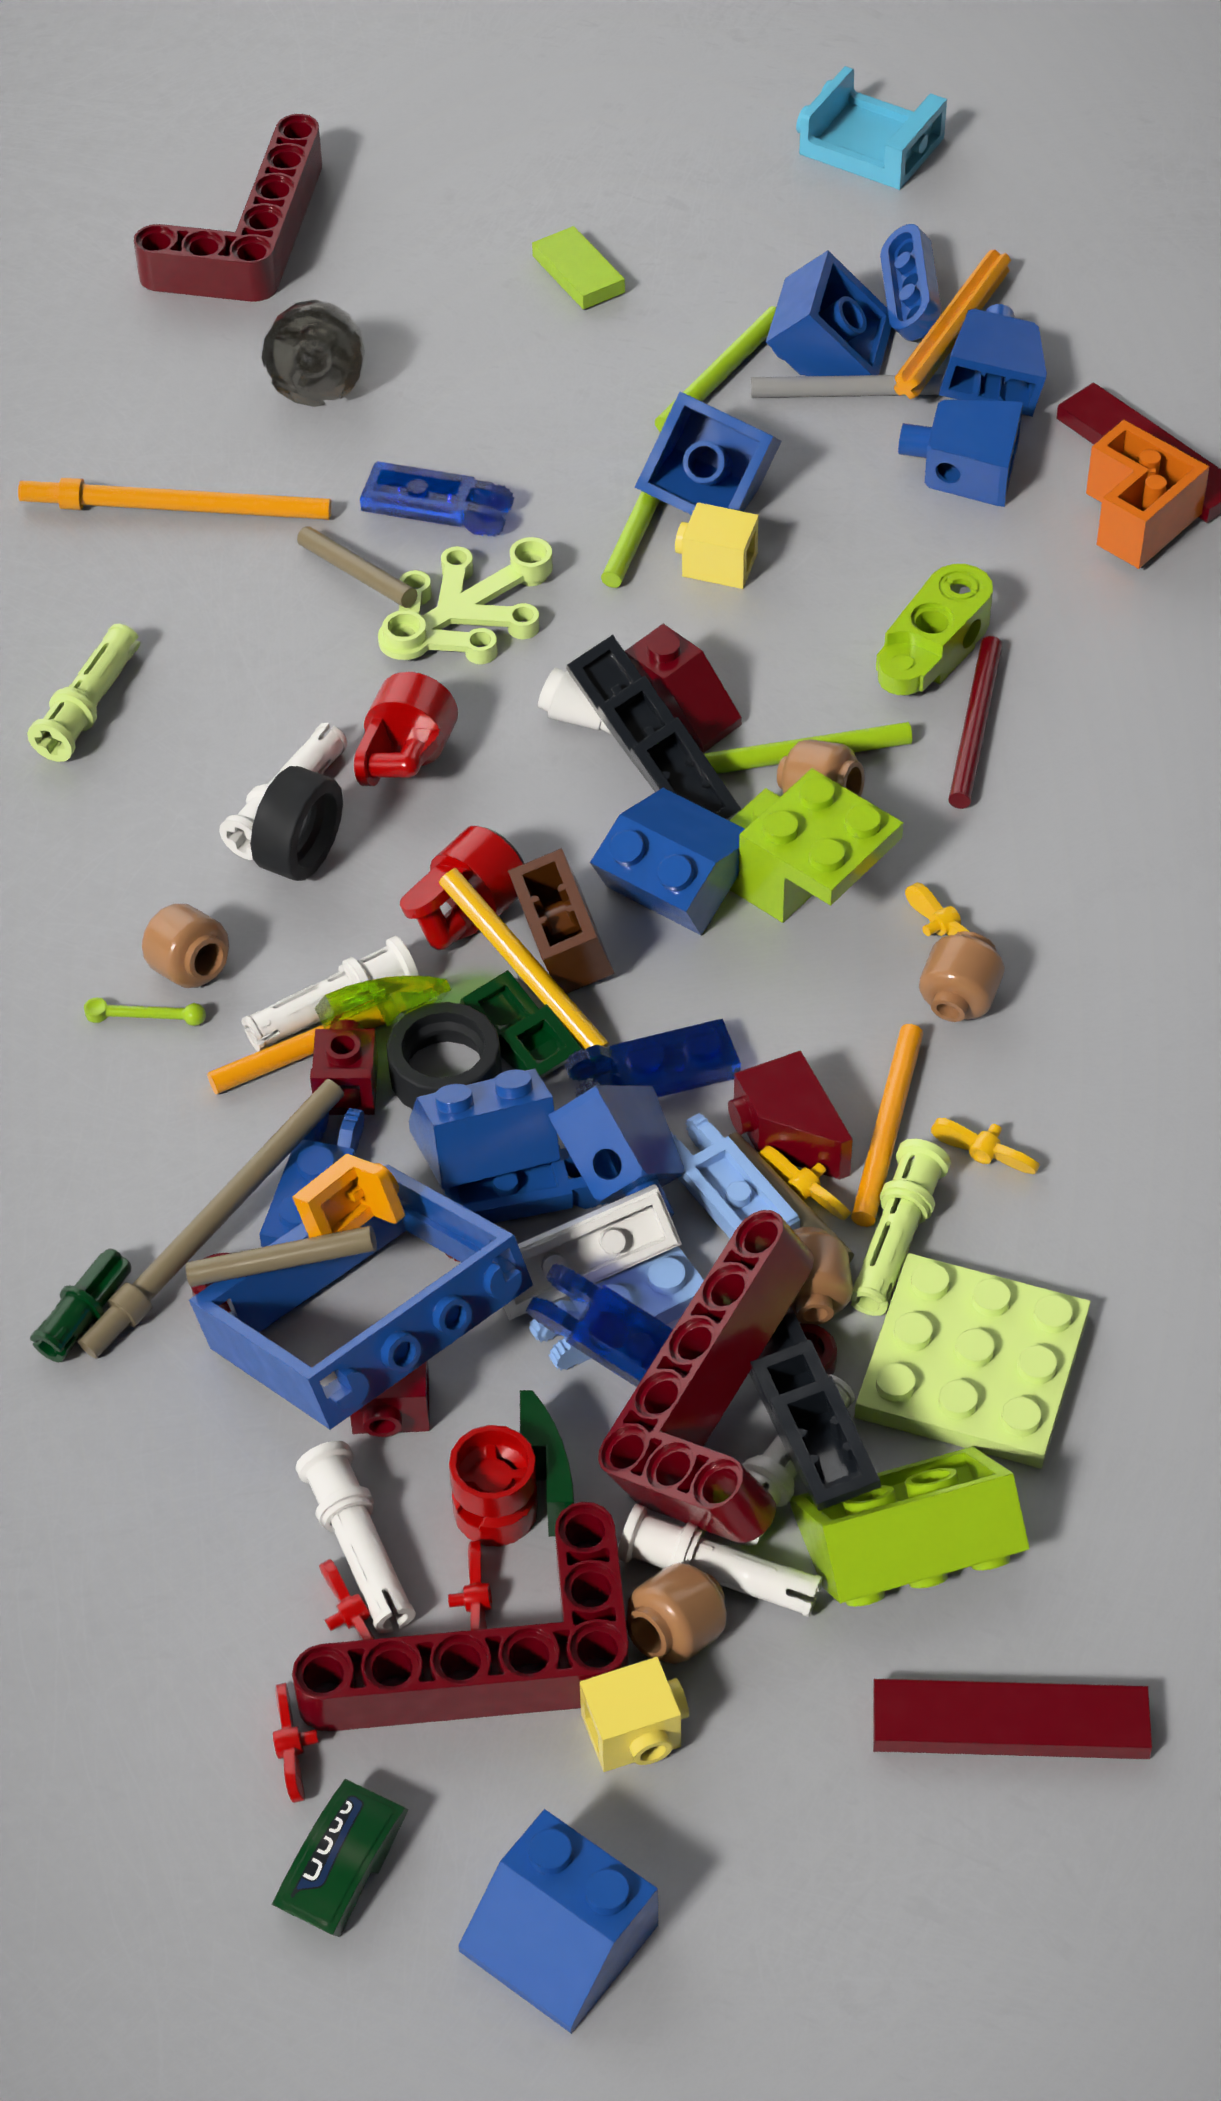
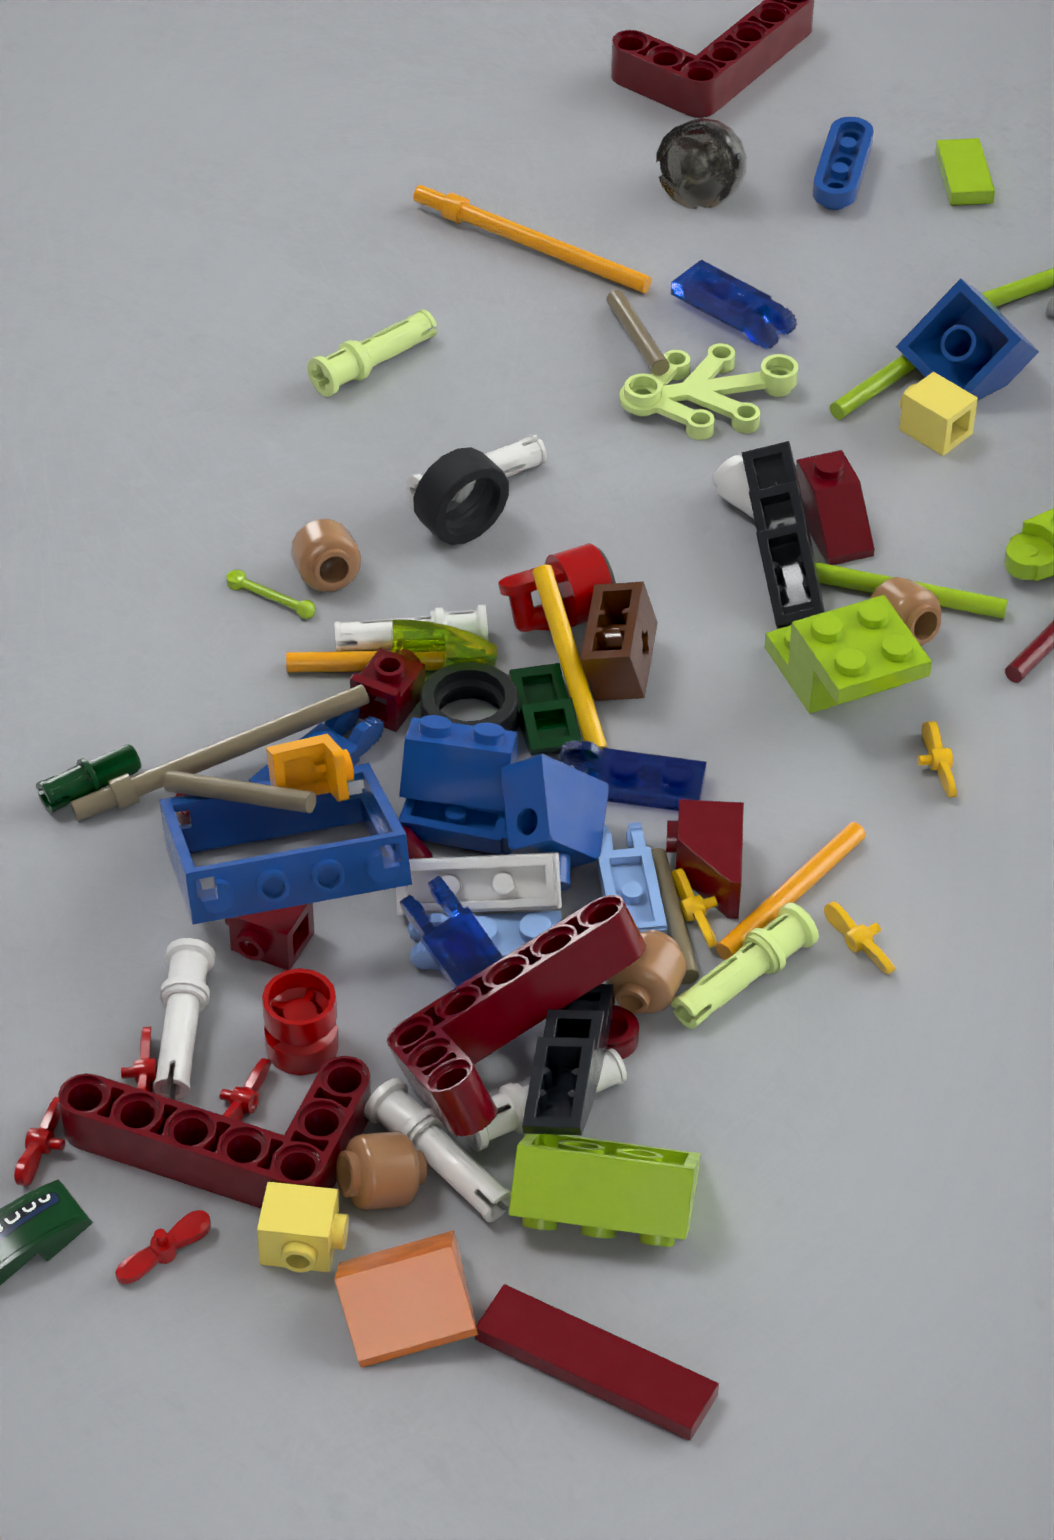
camera: 25 degrees right, 5 degrees down
(404, 728) = (591, 459): red piece -> none
(452, 300) = (843, 162): none -> blue plate
(496, 1801) = (164, 1246): none -> red piece
(549, 1454) = (354, 1015): dark green slope -> none
(560, 1920) = (150, 1347): blue slope -> none
(671, 858) = (737, 626): blue slope -> none
(787, 1738) = (405, 1299): none -> orange slope
(961, 976) = (919, 801): medium nougat head -> none
(973, 1360) = (744, 1090): yellowish green plate -> none

